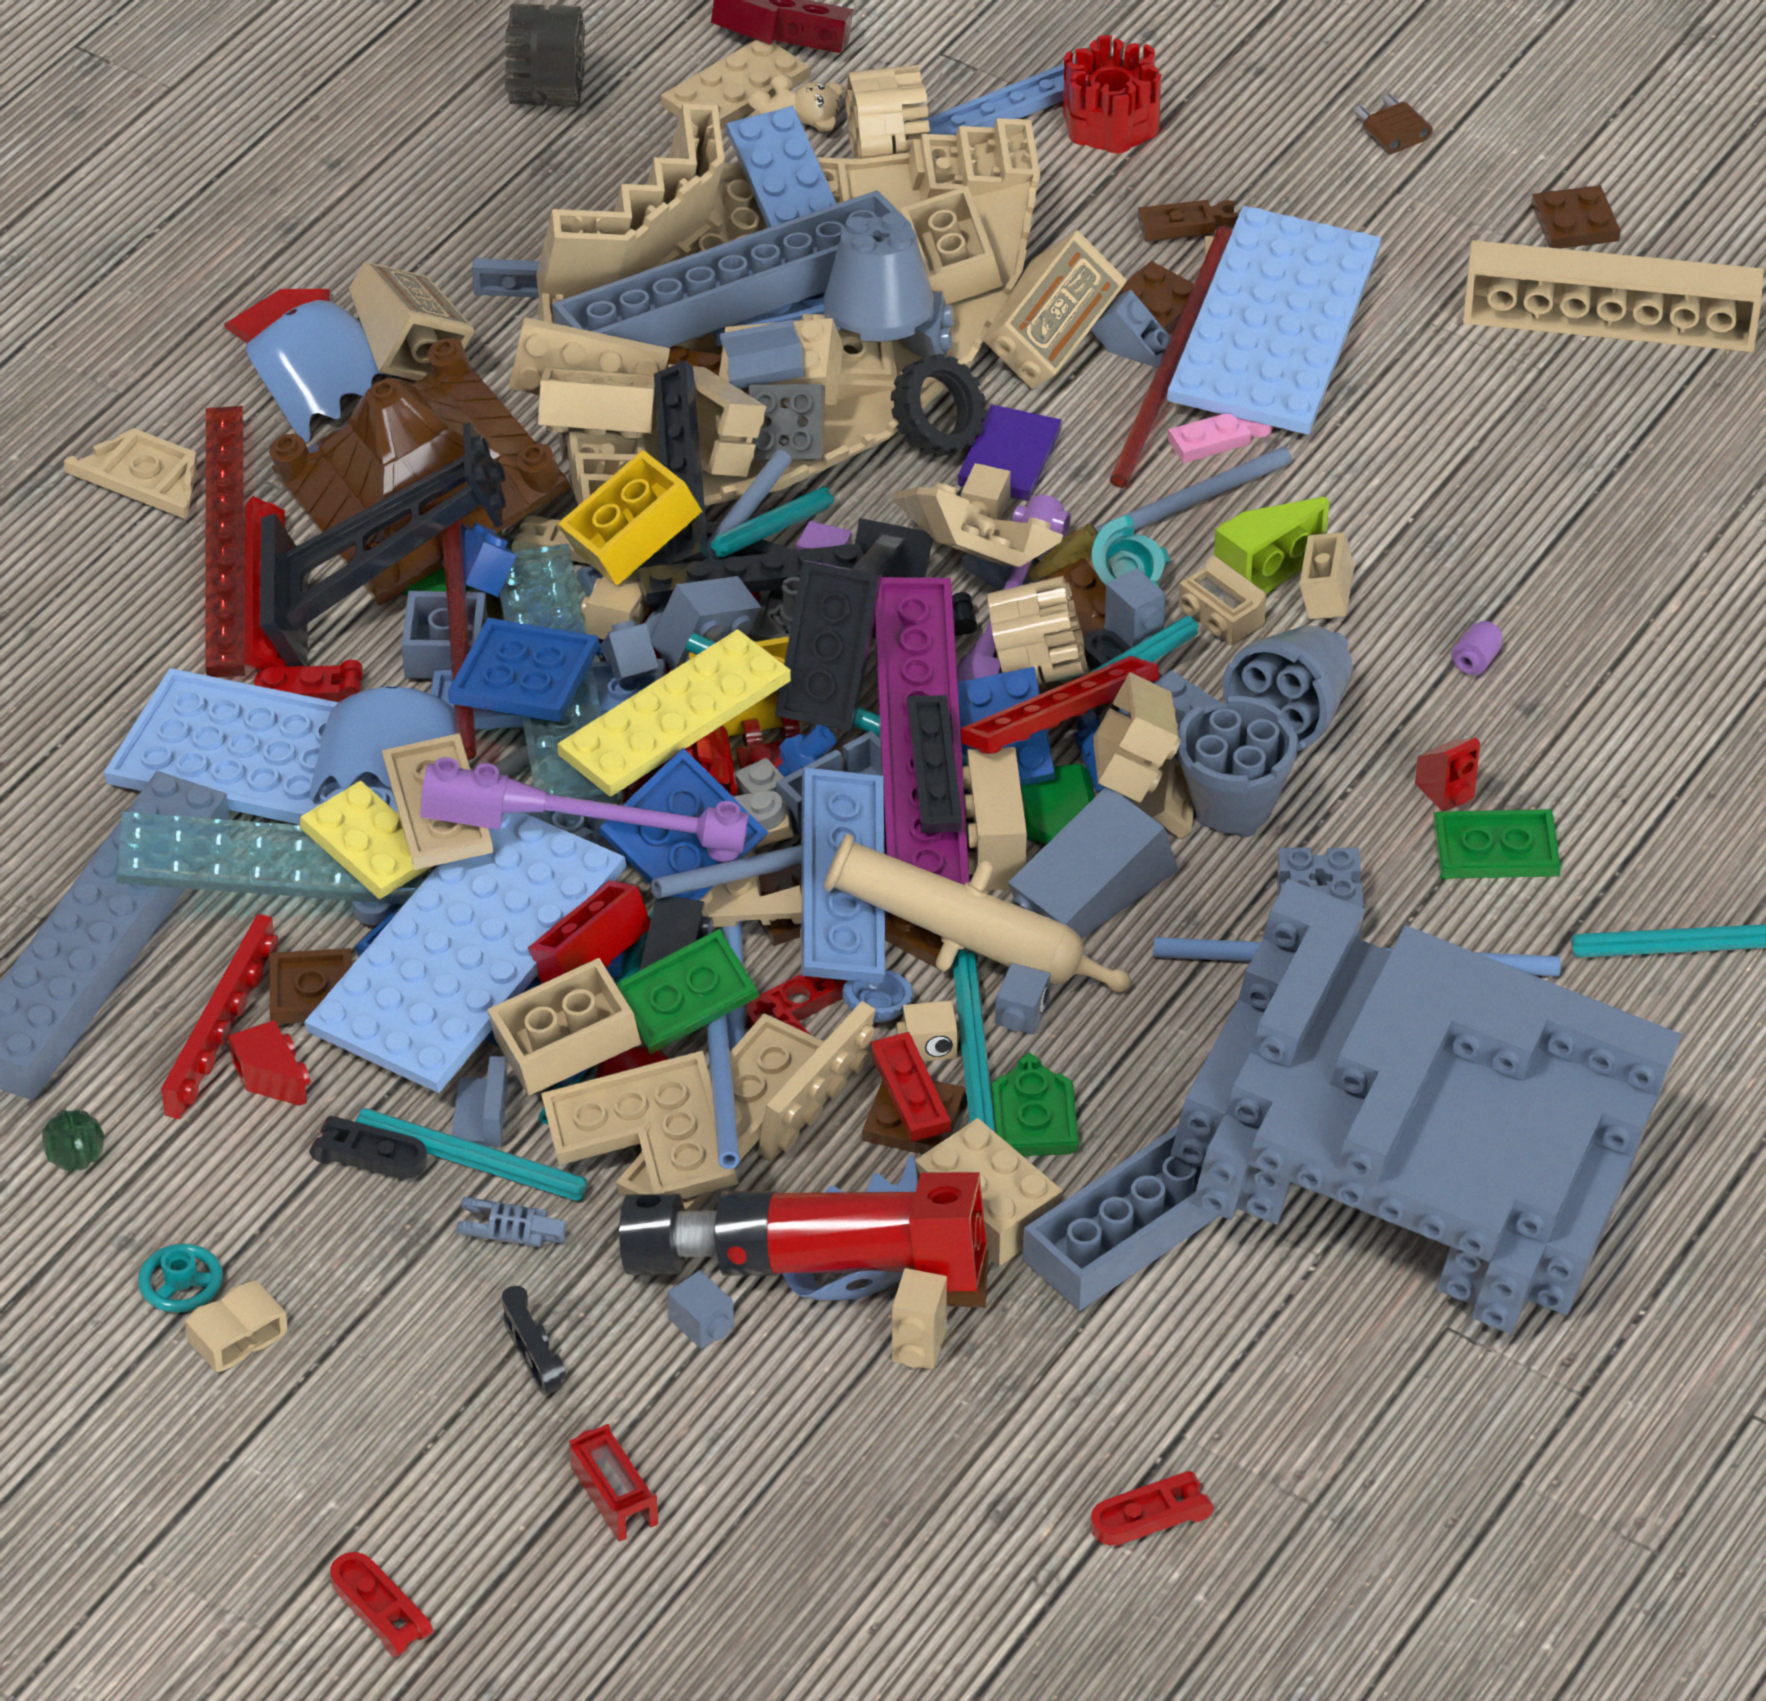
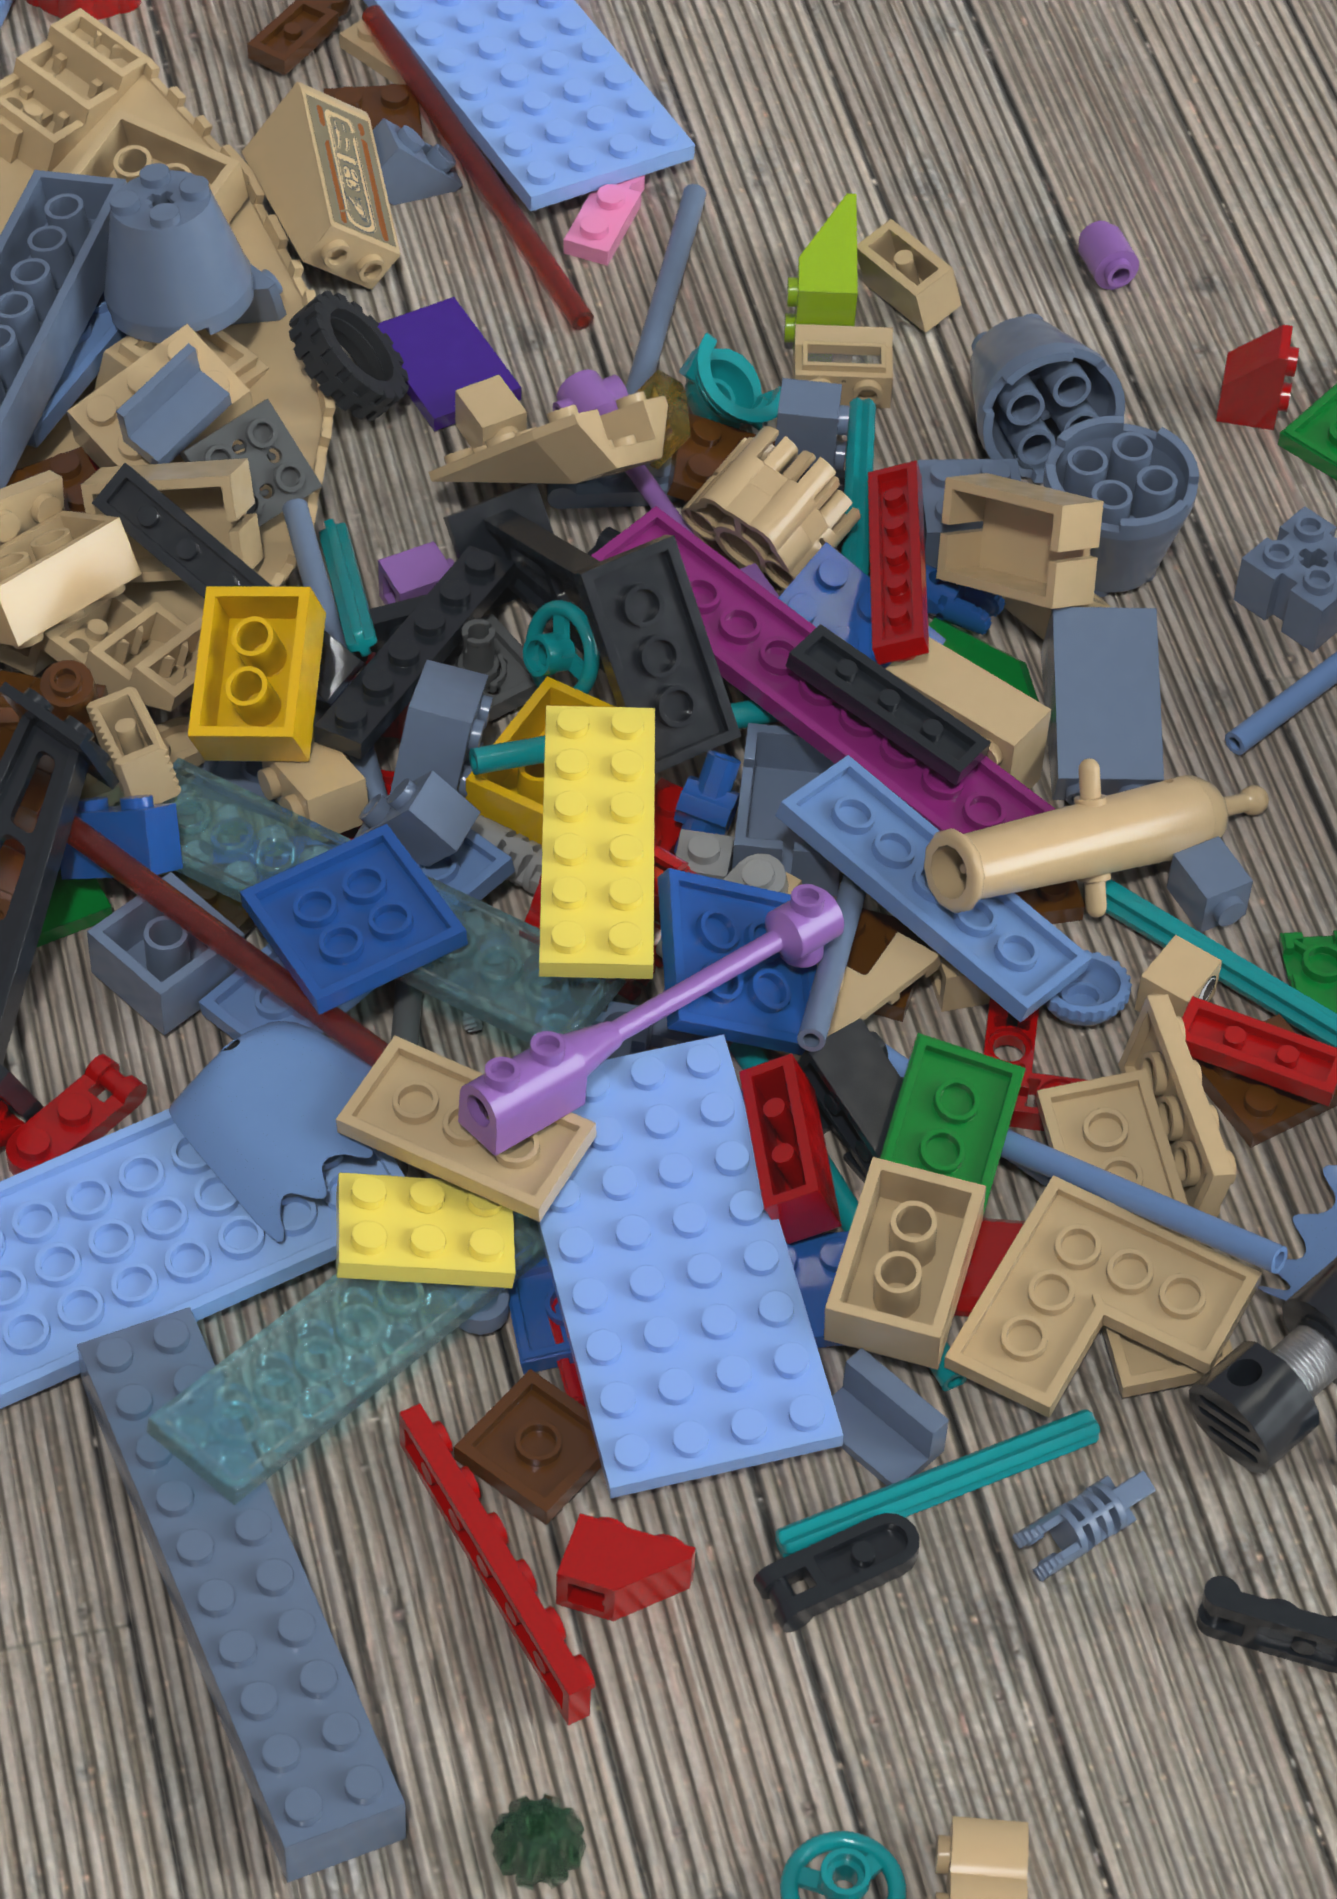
camera: 50 degrees left, 5 degrees up
(534, 516) = (134, 745): none -> tan brick

